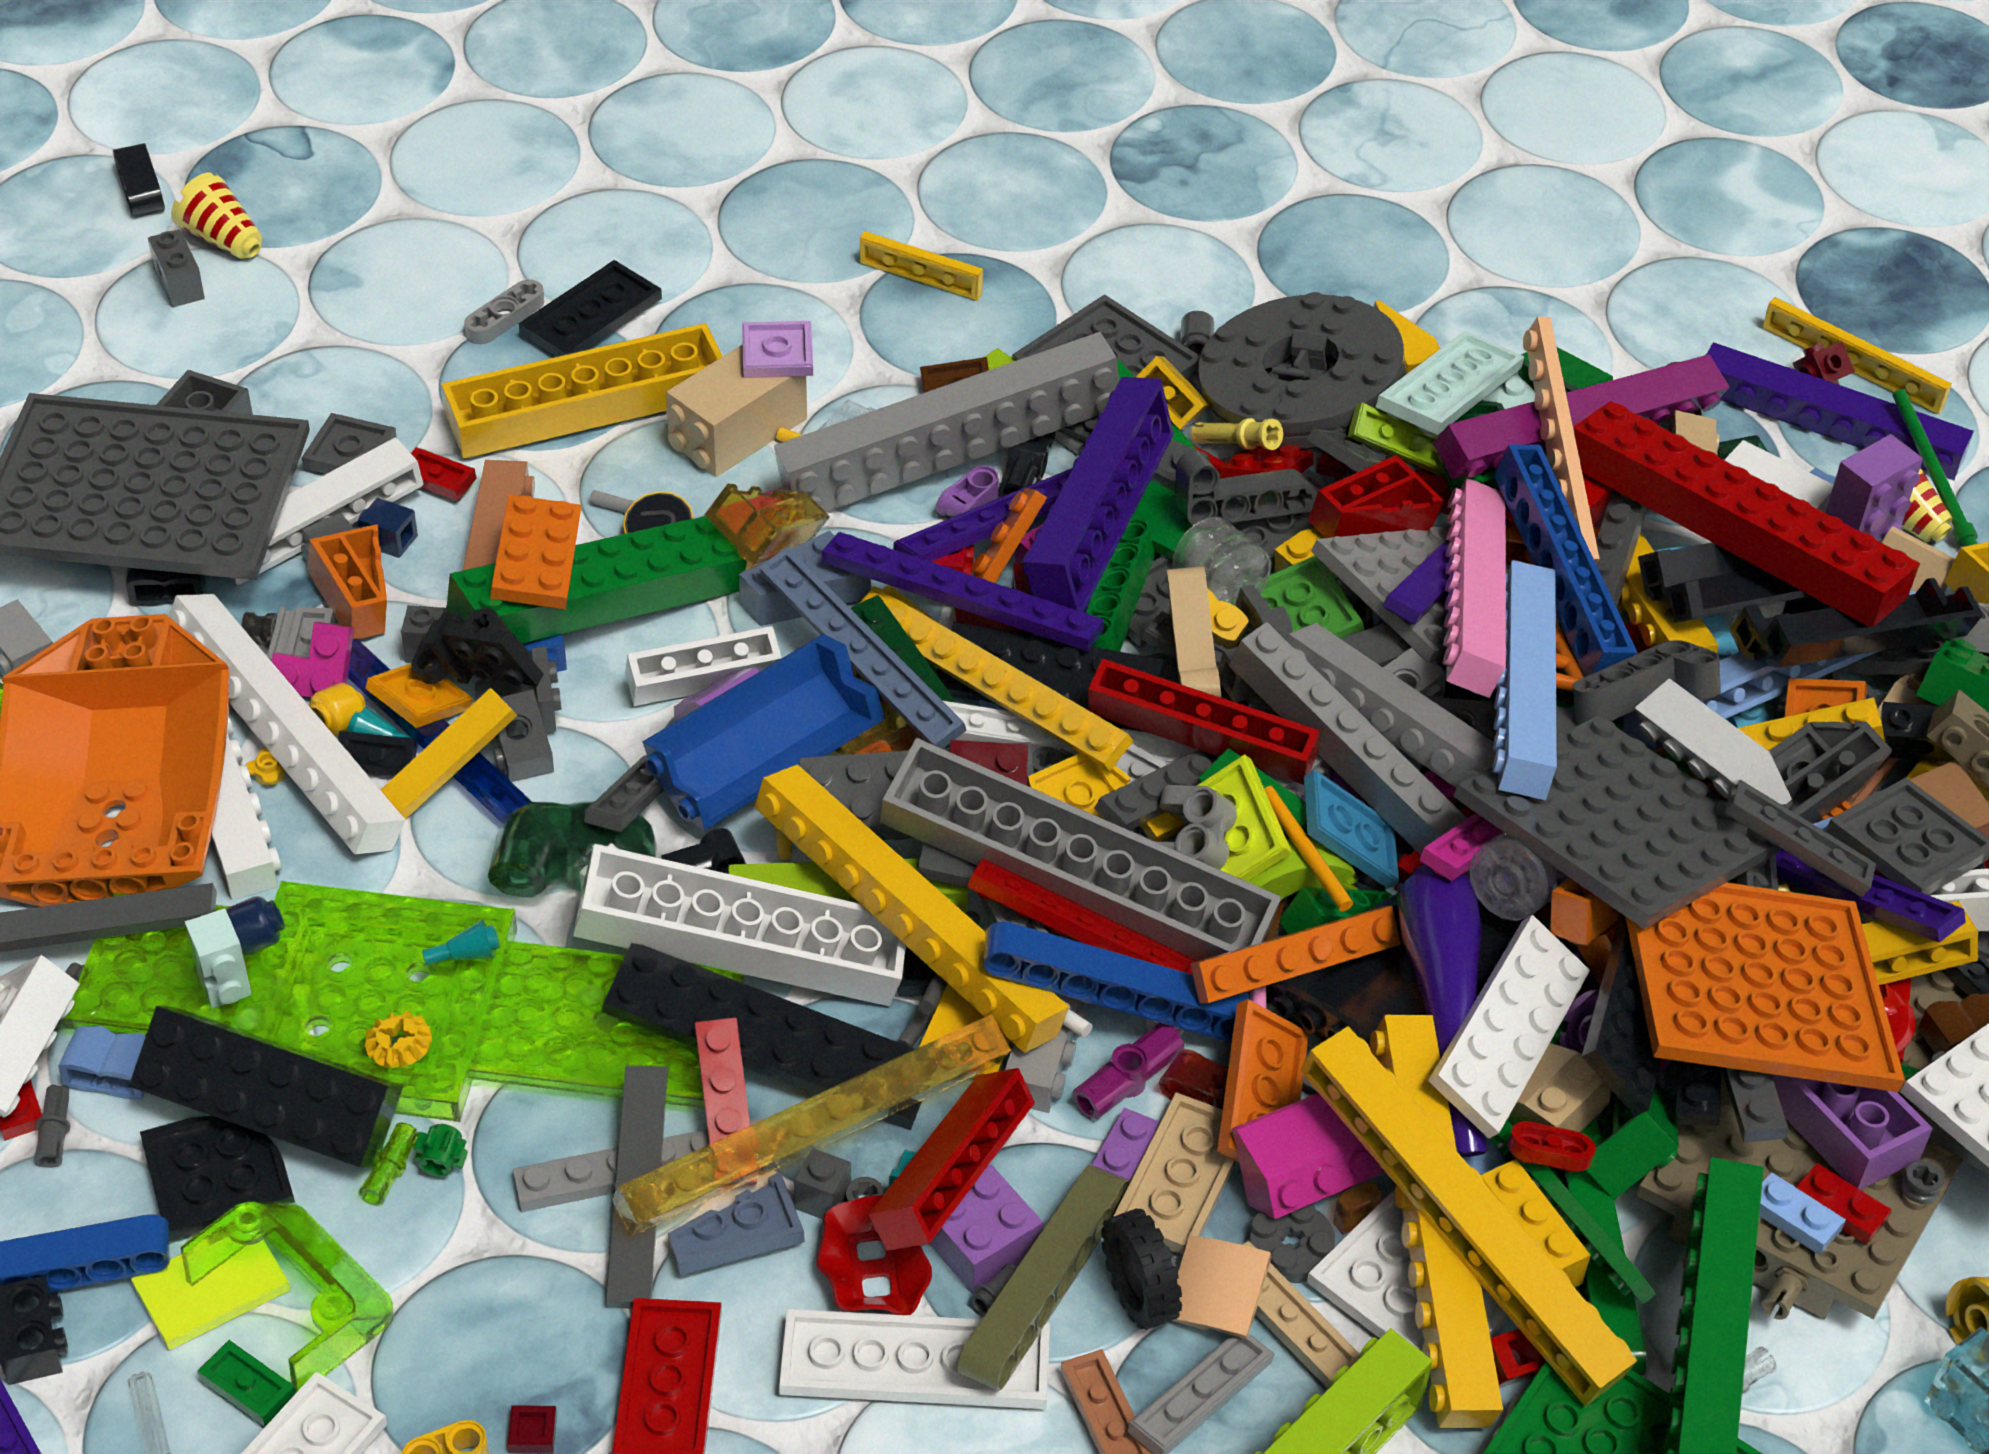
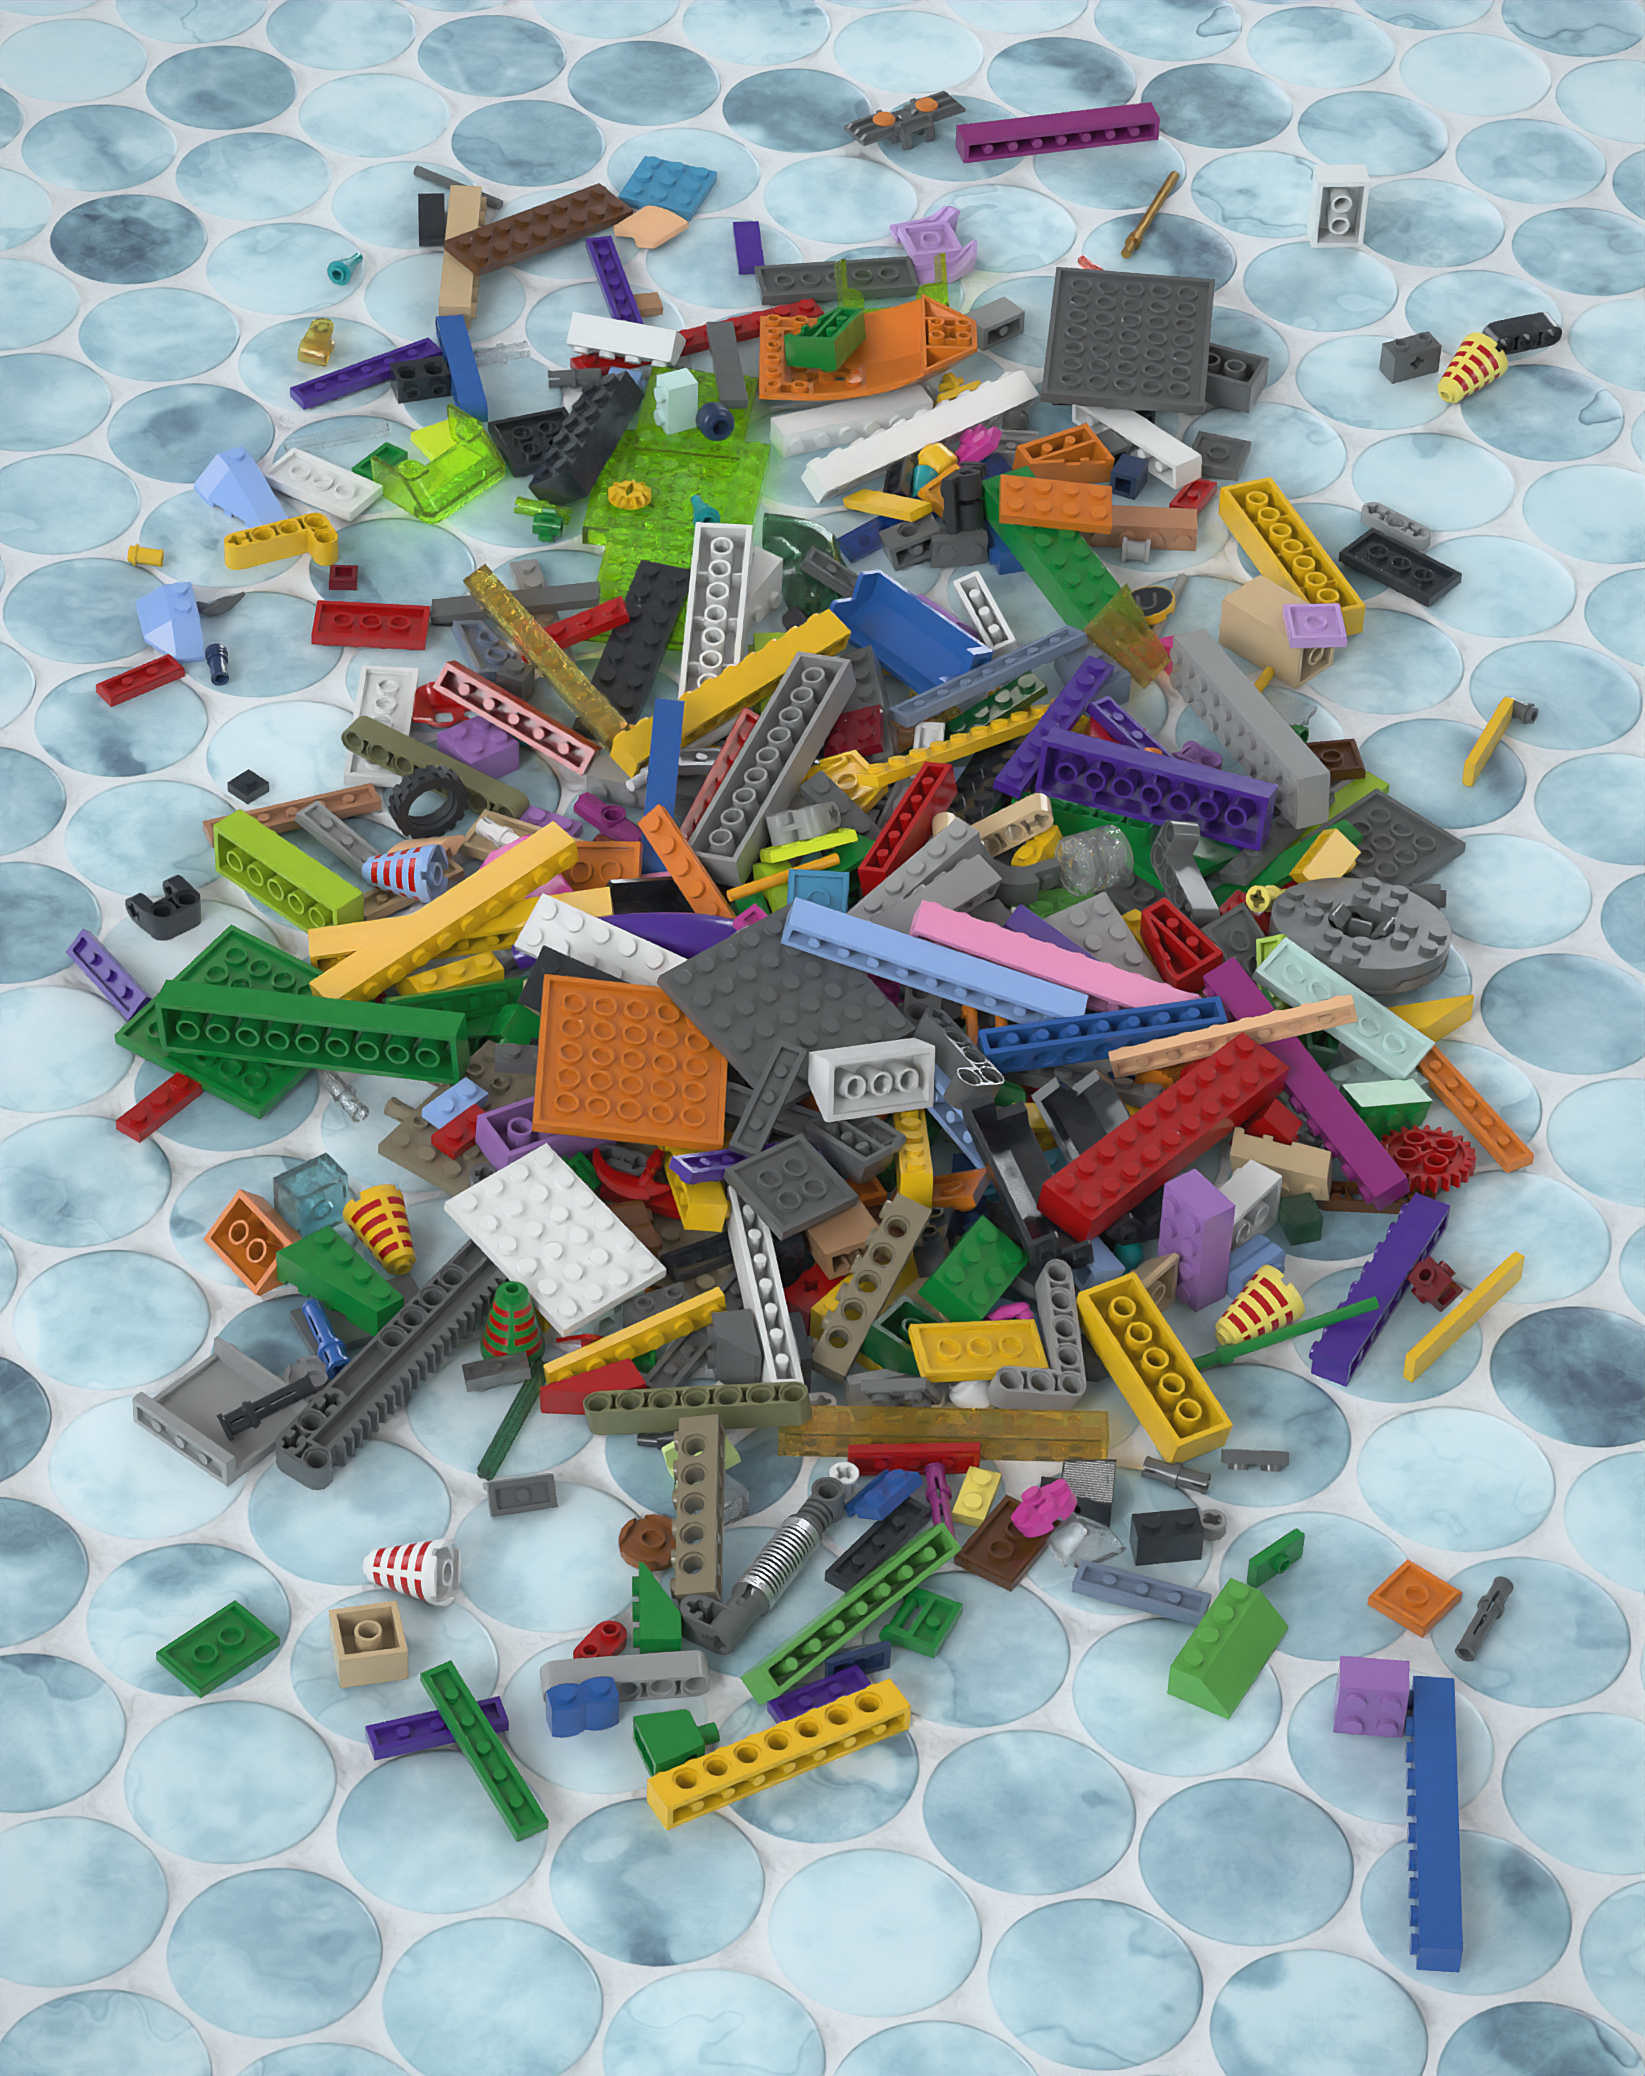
camera: 90 degrees right, 5 degrees down
(77, 789) = (828, 341): none -> green wedge
(852, 243) = (1525, 712): none -> dark grey pin
(1190, 1186) = (495, 833): none -> white pin
(1306, 1286) = (409, 872): none -> light blue cone
(1551, 1146) = (507, 977): red plate -> none
(1565, 316) = (1474, 1112): none -> orange plate
(1611, 349) = (1431, 1157): none -> red gear

